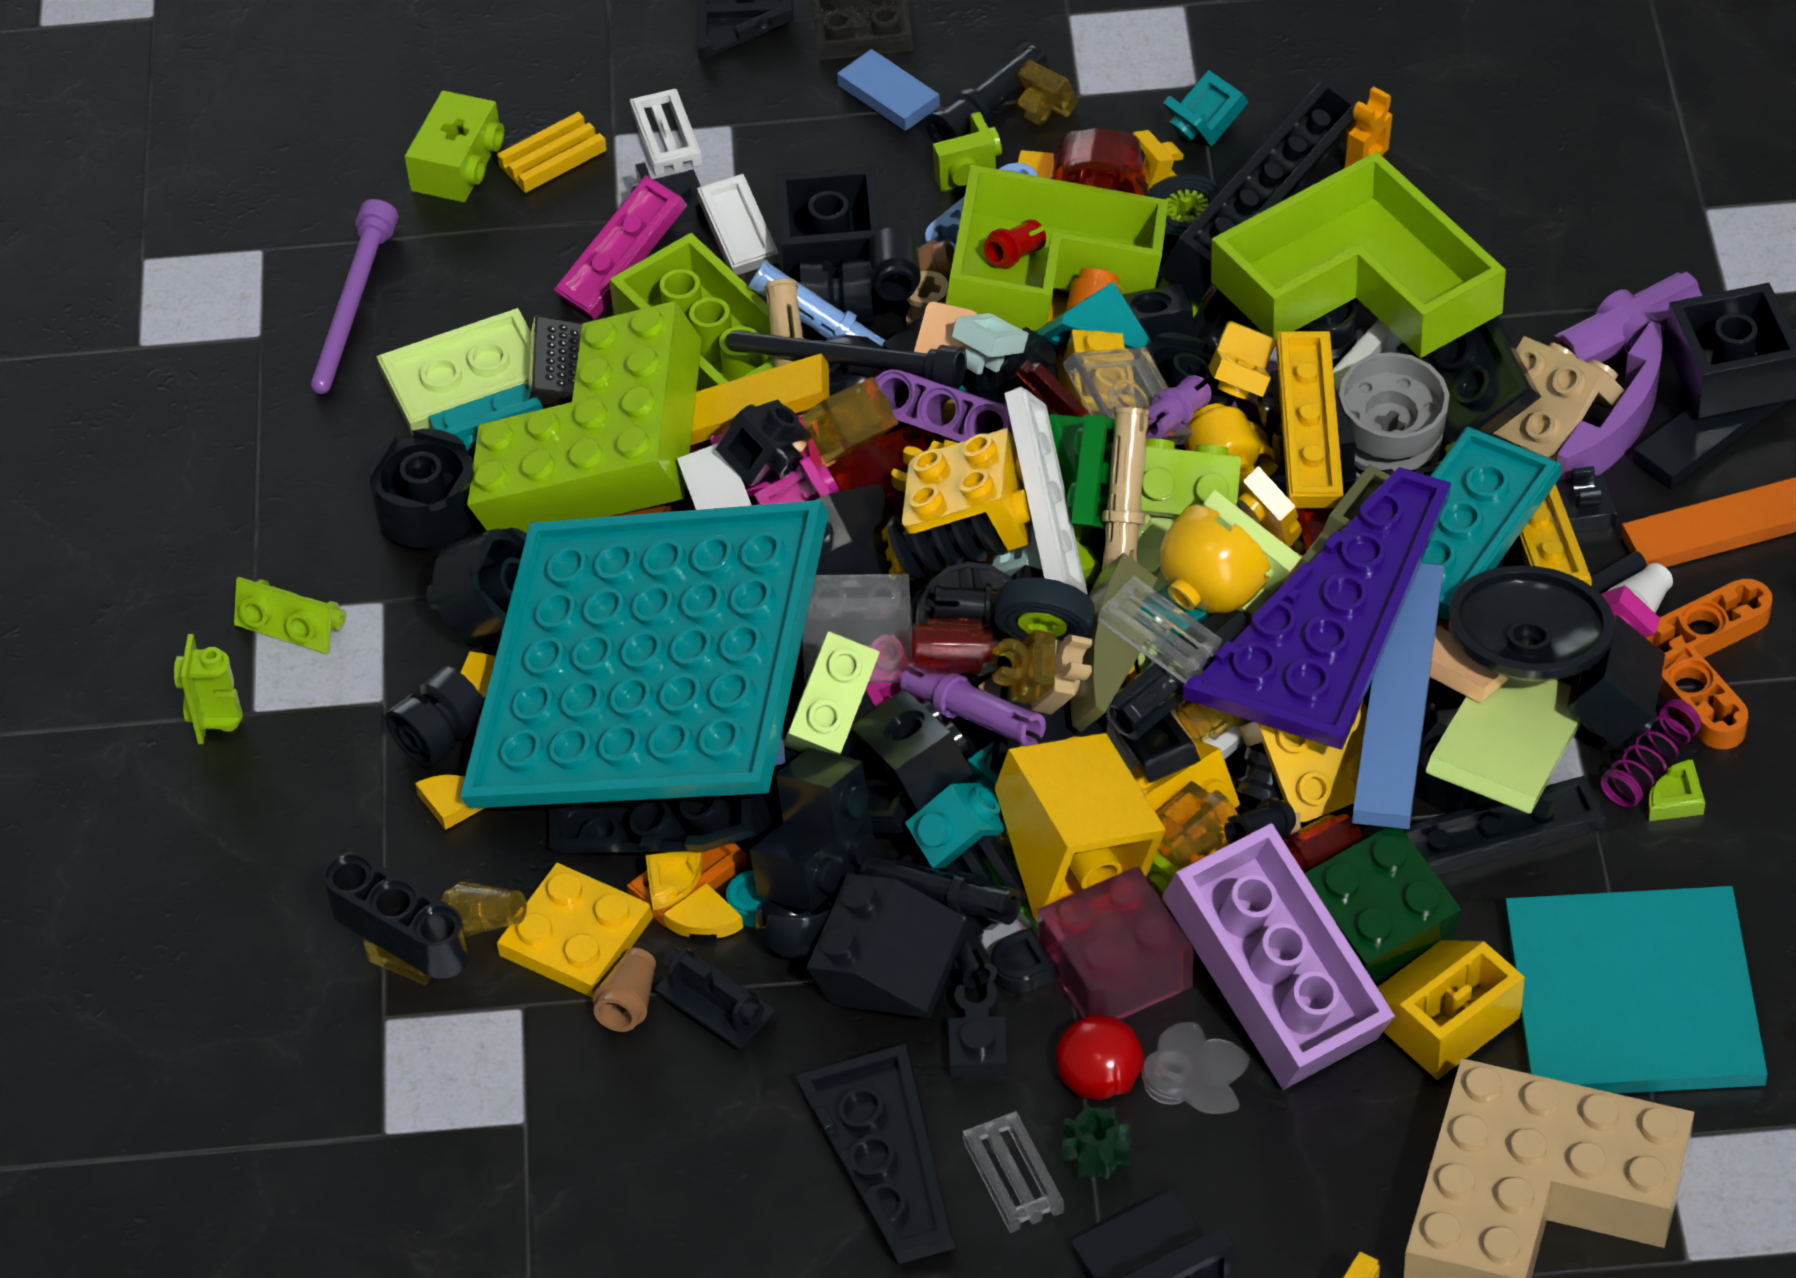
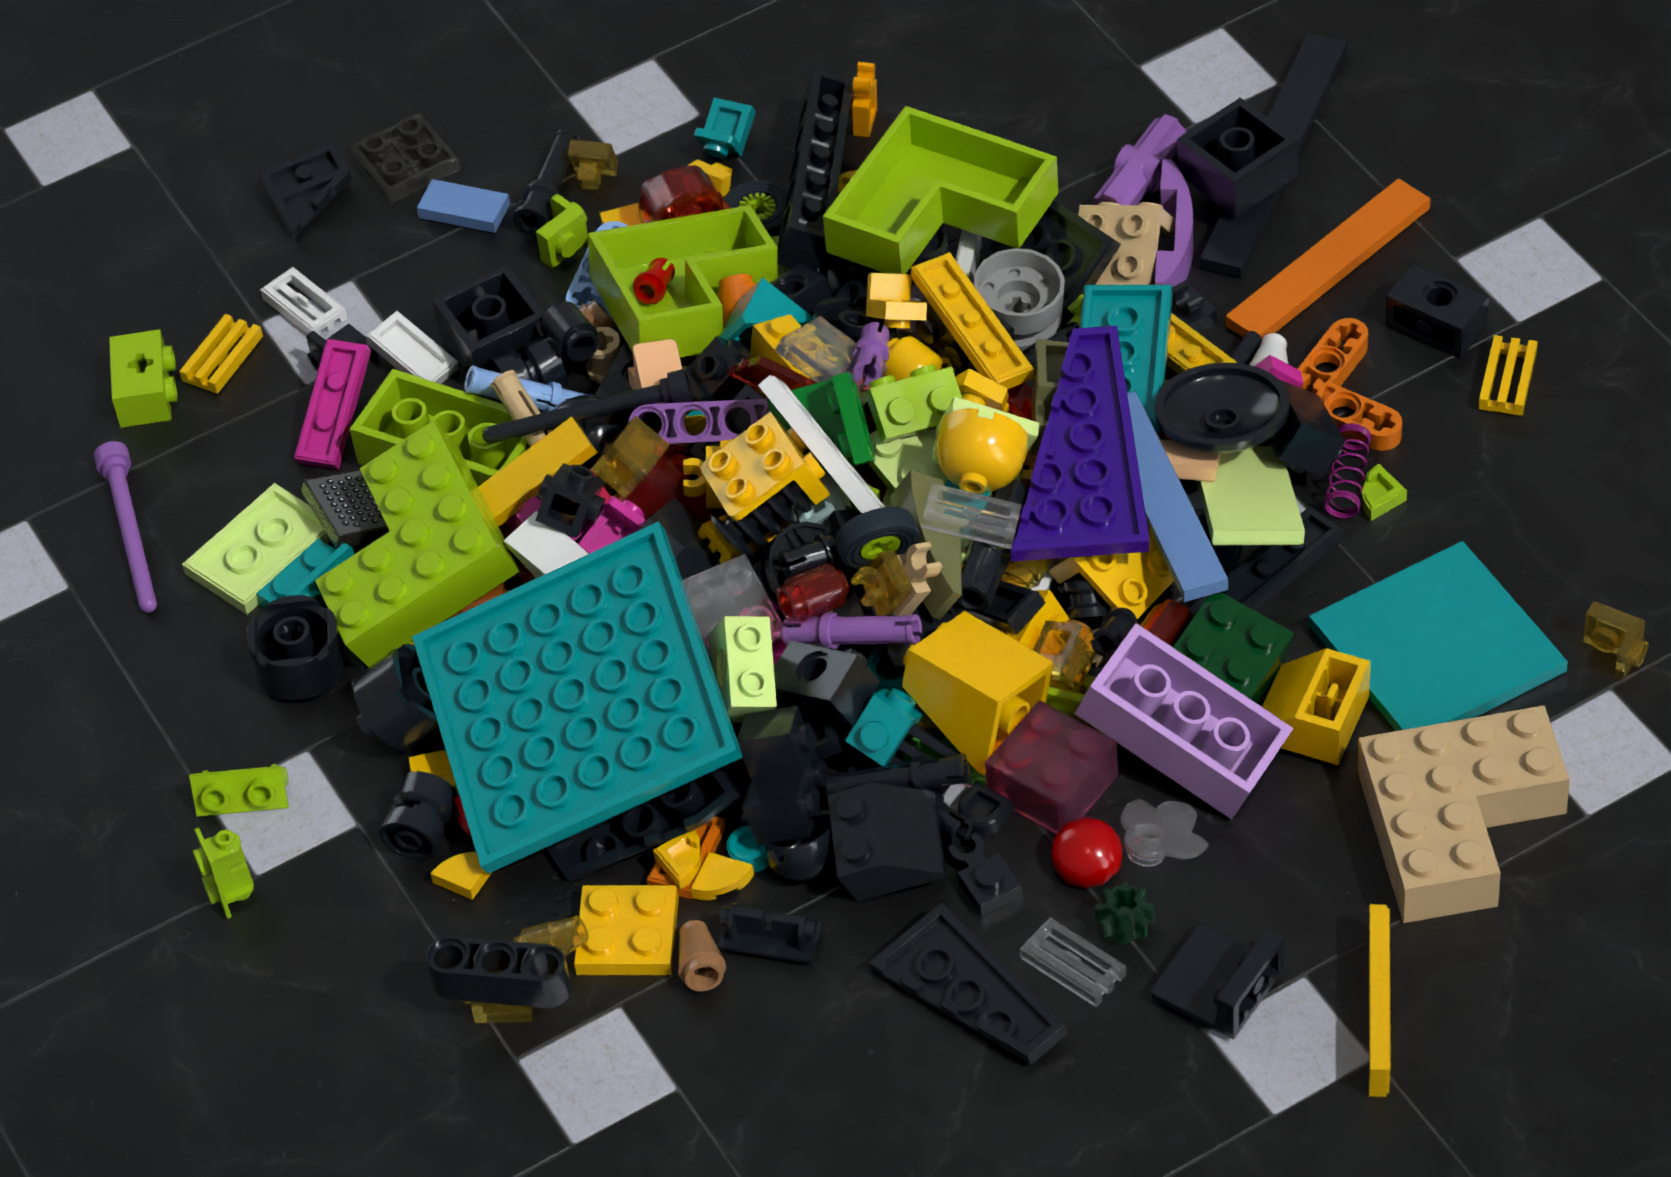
camera: 25 degrees left, 0 degrees up
(988, 340) = (698, 356): light aqua tile -> none
(1125, 486) = (881, 421): tan pin -> none

